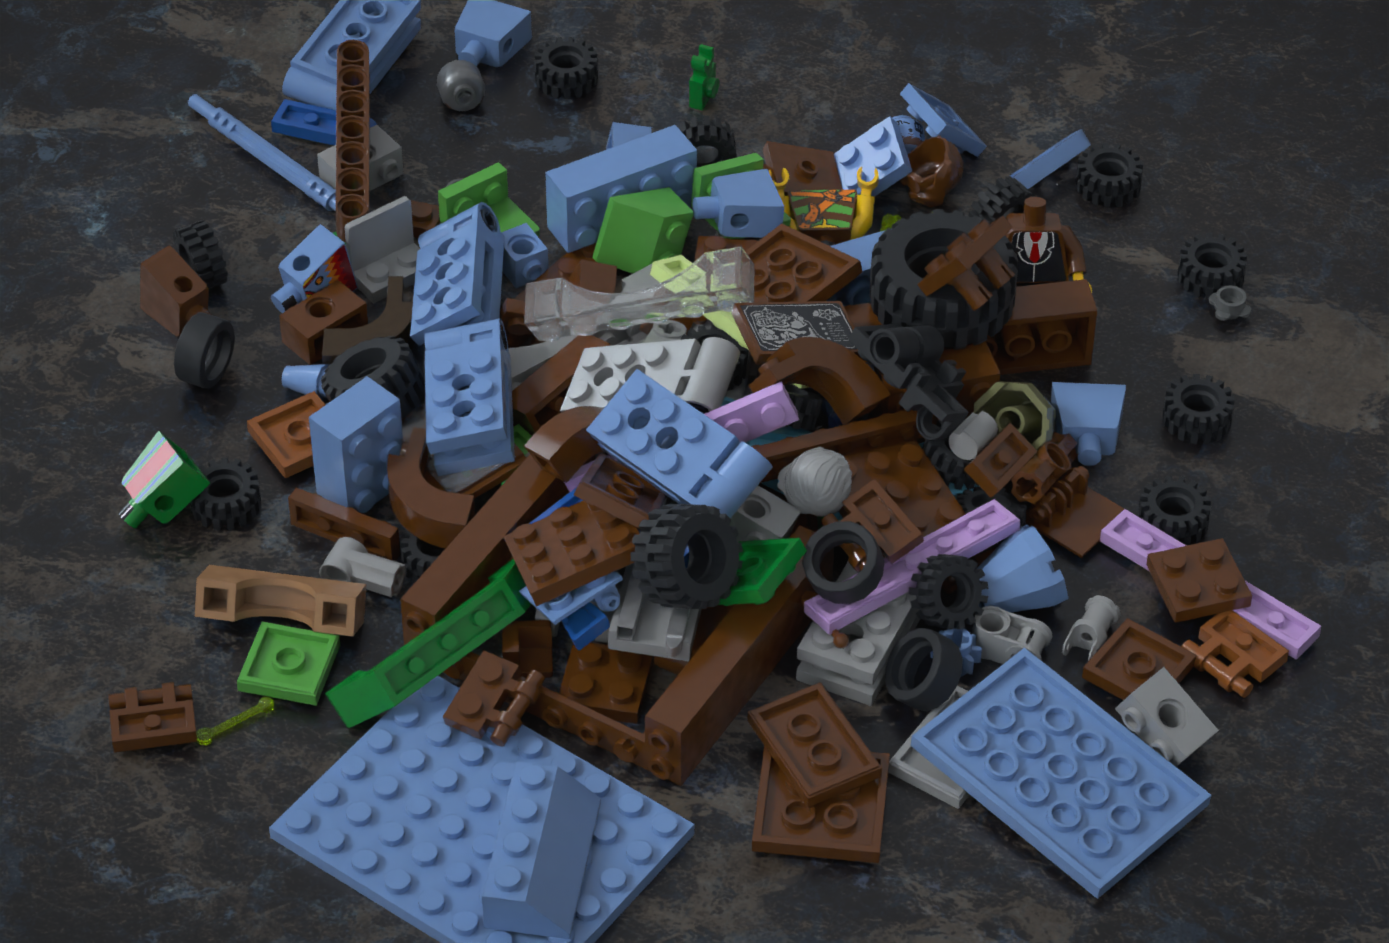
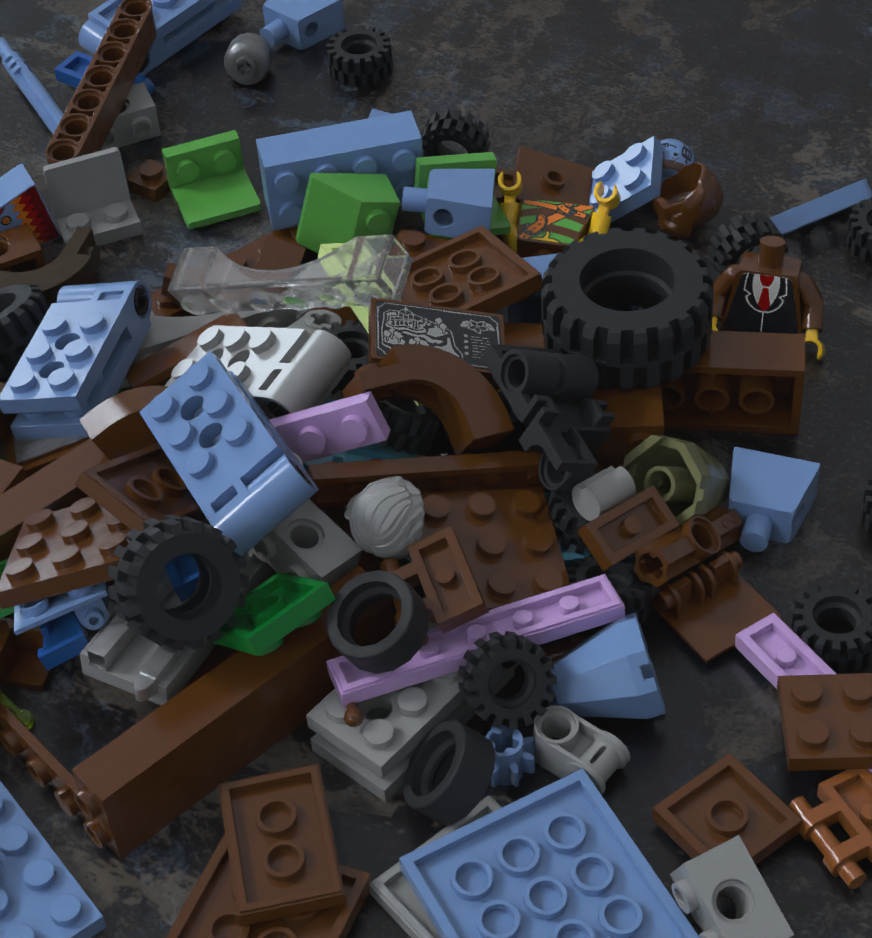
camera: 20 degrees right, 0 degrees up
(458, 273) = (144, 230): medium blue hinge -> none
(523, 255) = (226, 223): medium blue brick -> none
(607, 680) = (84, 713): reddish brown plate -> none
(703, 82) = (486, 83): green plate -> none
(941, 120) = (716, 151): medium blue plate -> none
(960, 258) = (627, 279): reddish brown plate -> none
(1092, 629) = (684, 756): light grey piece -> none

